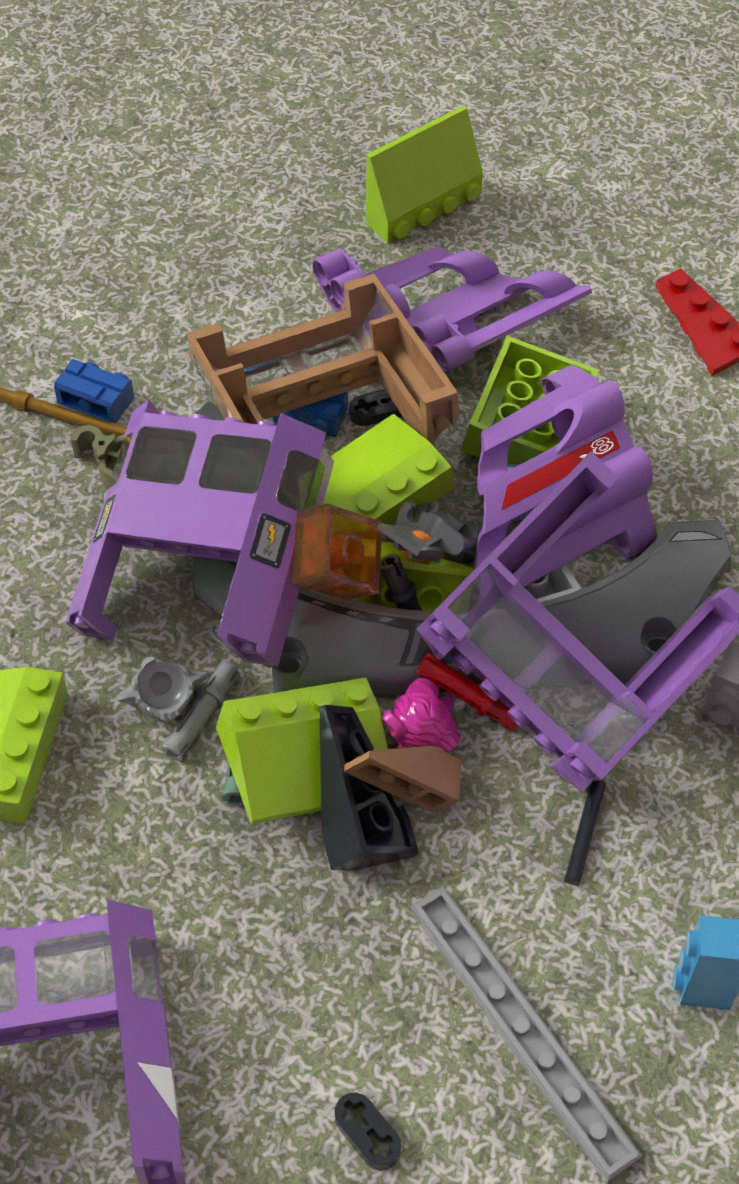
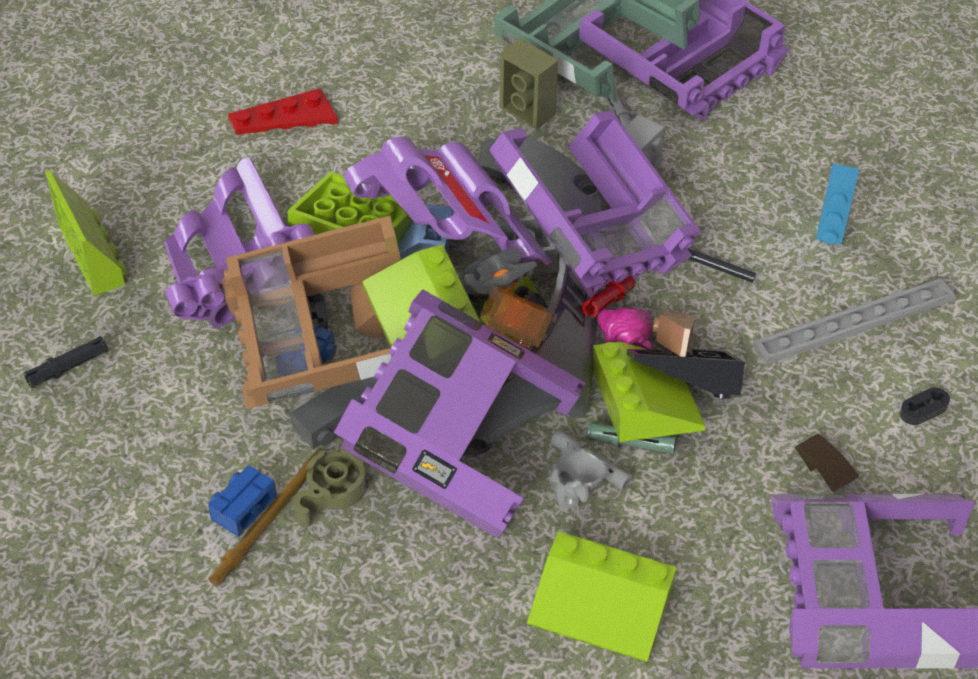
camera: 80 degrees left, 5 degrees down
(234, 991) = (830, 463): none -> dark brown slope
(253, 212) = (56, 366): none -> black pin

